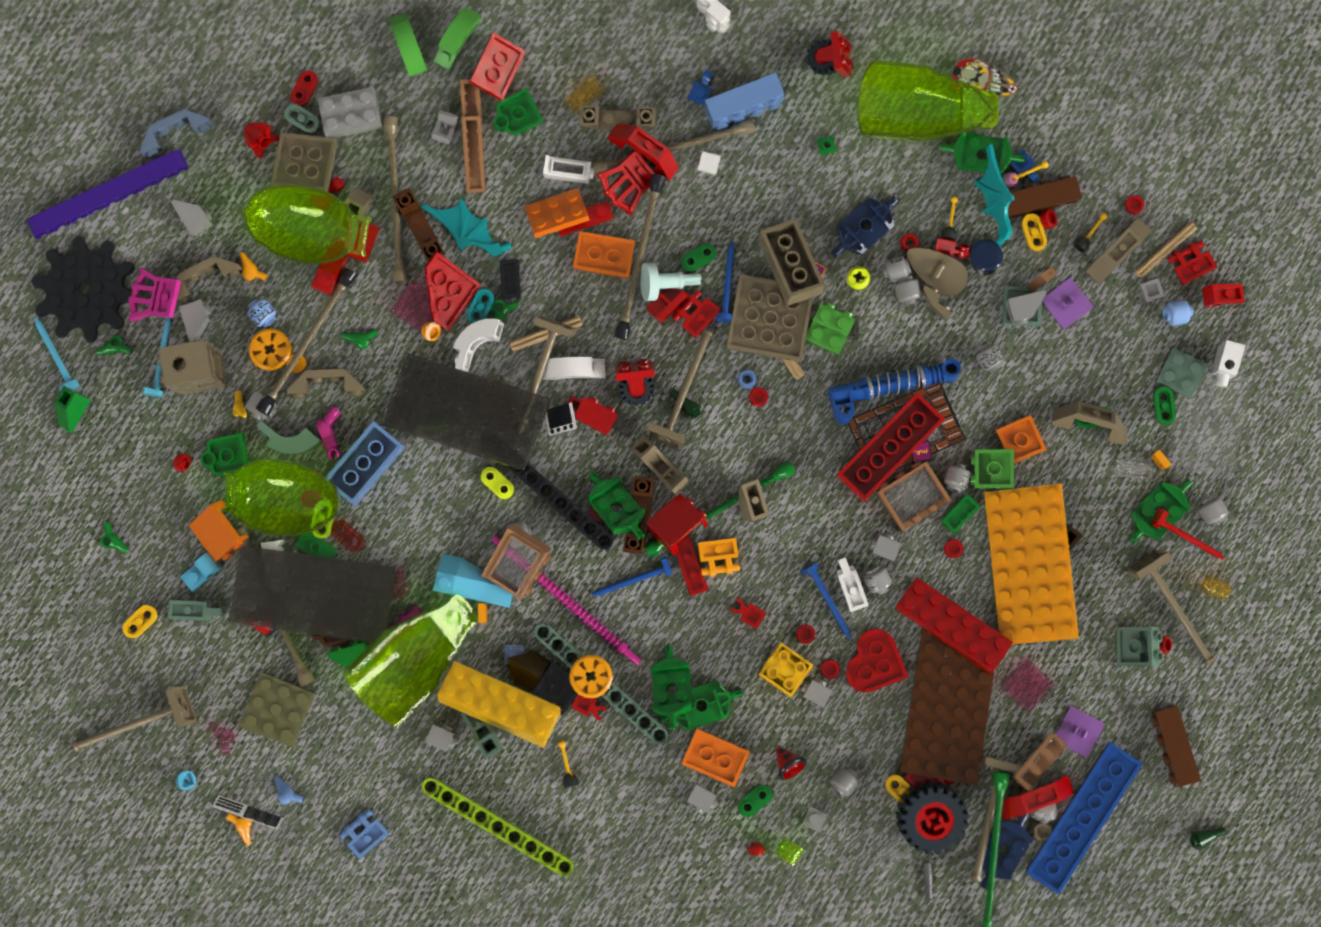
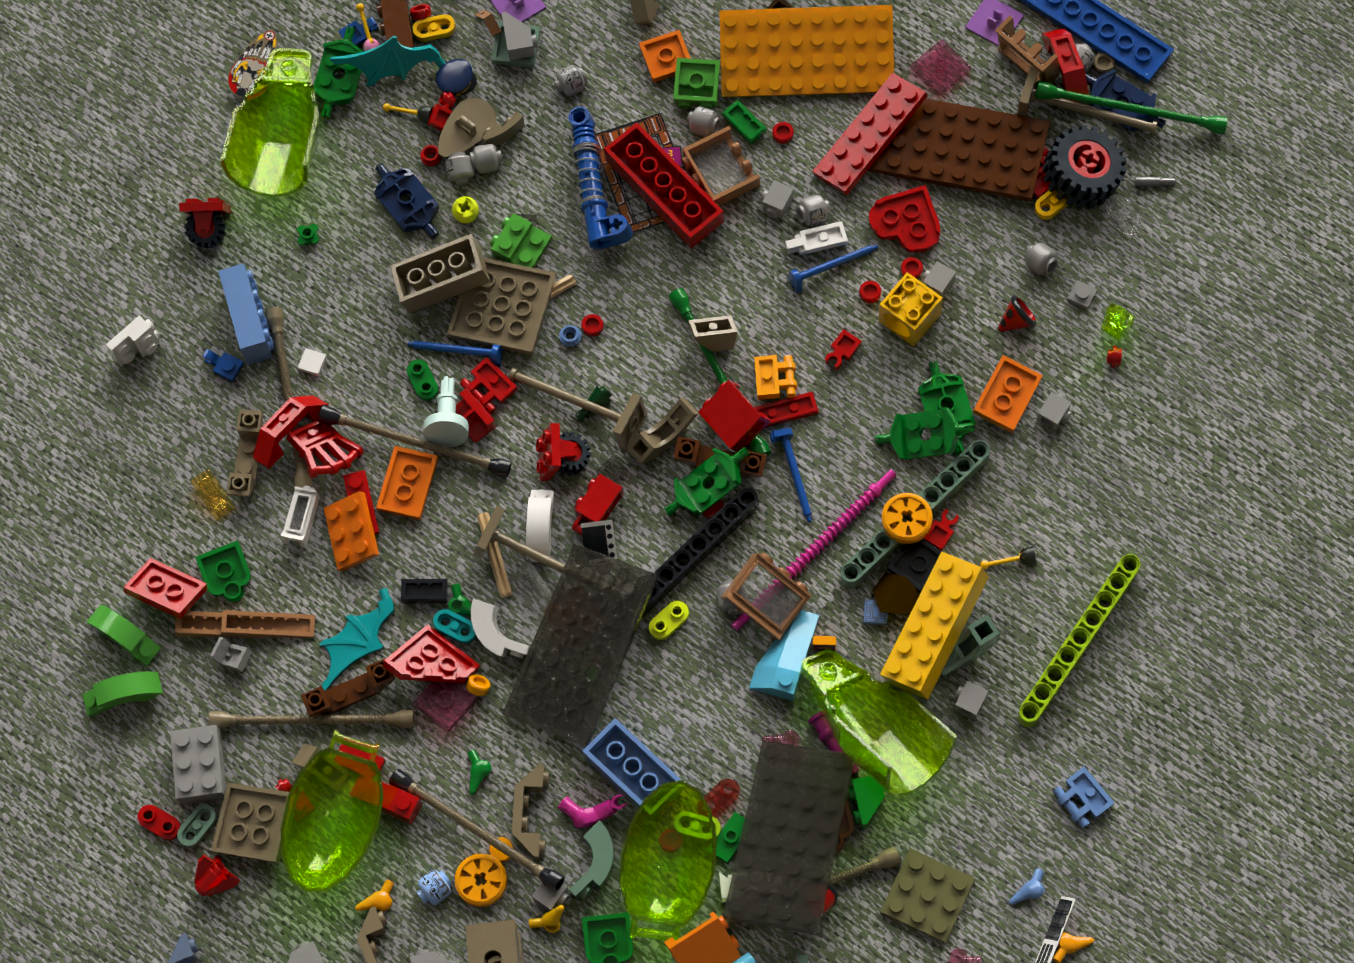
camera: 80 degrees left, 15 degrees down
(754, 800) = (1058, 356): green plate -> none

